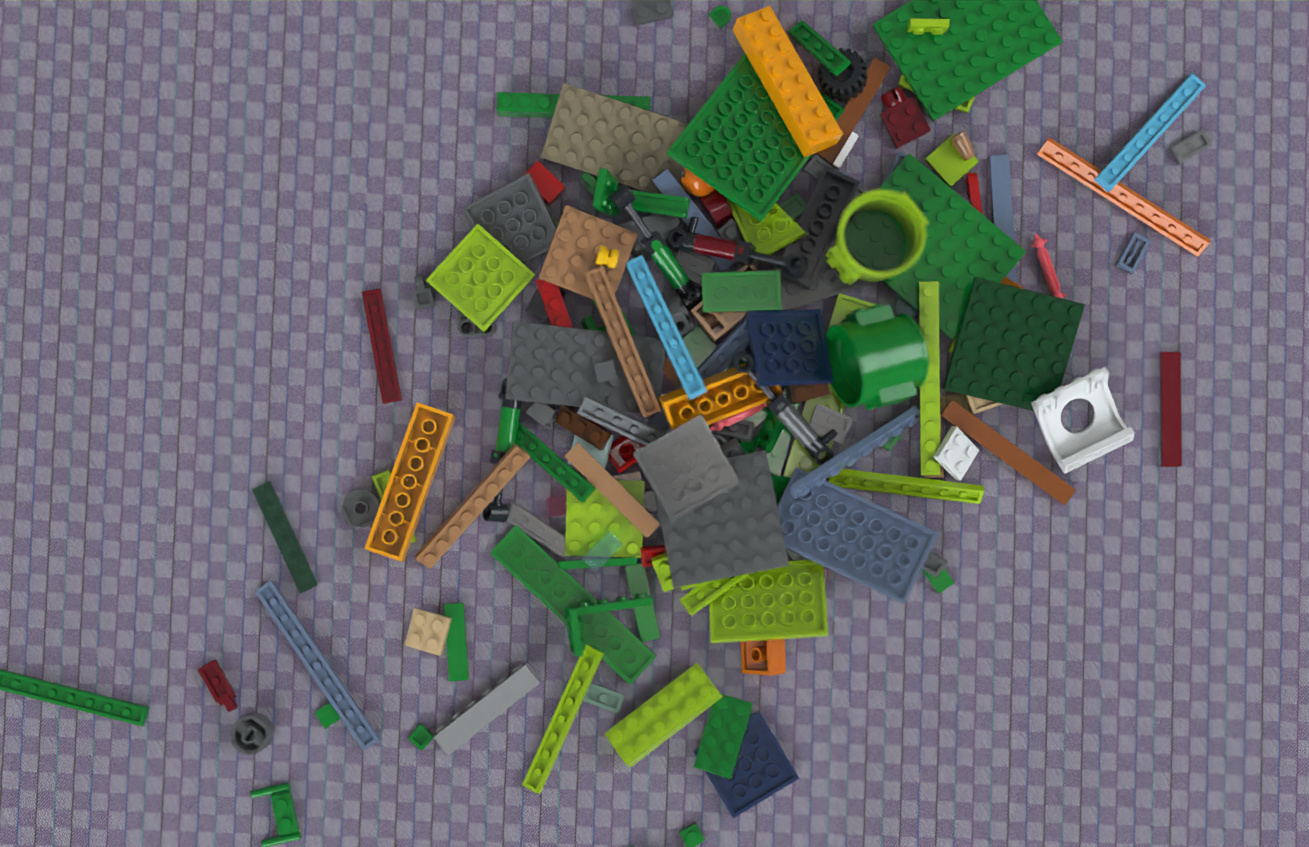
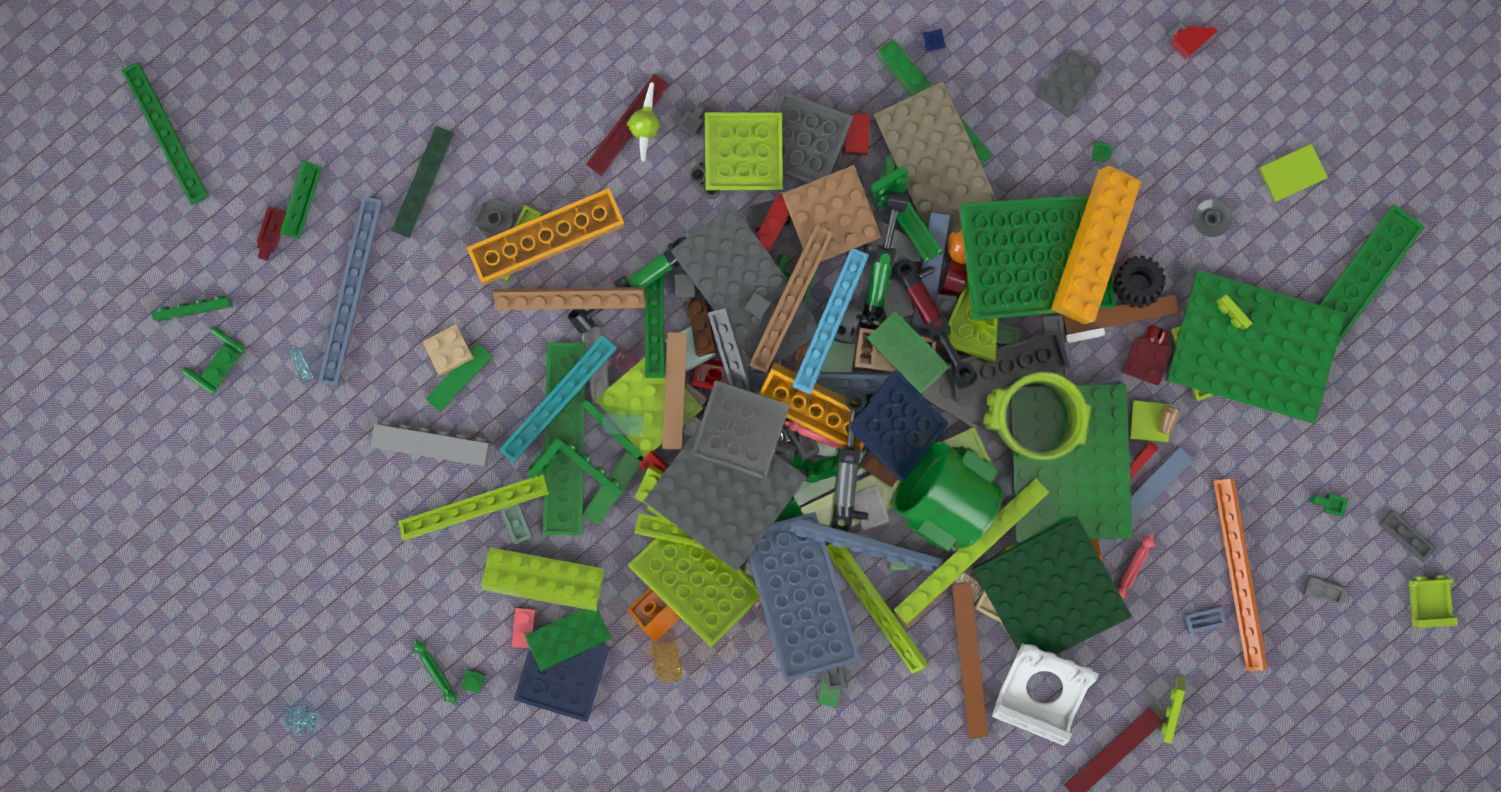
camera: 45 degrees right, 0 degrees up
(215, 640) = (300, 200): none -> green plate
(218, 802) = (199, 307): none -> green plate
(252, 733) = (257, 288): dark grey brick -> none
(327, 715) = (320, 332): green tile -> none
(338, 752) = (301, 365): none -> clear light blue axle
(392, 332) = (644, 123): none -> lime helmet
(421, 737) = (366, 415): green tile -> none
(526, 63) = (934, 40): none -> clear blue plate
(539, 582) = (558, 399): none -> teal plate
(607, 257) = (843, 230): yellow wheel -> none
(684, 761) = (523, 625): none -> coral plate
(807, 676) = (667, 660): none -> clear yellow slope
(819, 48) = (1143, 246): green tile -> none
(956, 453) = (933, 621): white plate -> none
(1132, 83) = (1332, 504): none -> green plate
(1150, 132) = (1306, 550): medium azure tile -> none
(1179, 335) = (1173, 710): none -> lime wing
(1204, 50) = (1407, 535): none -> dark grey tile
(1268, 76) = (1431, 602): none -> lime panel

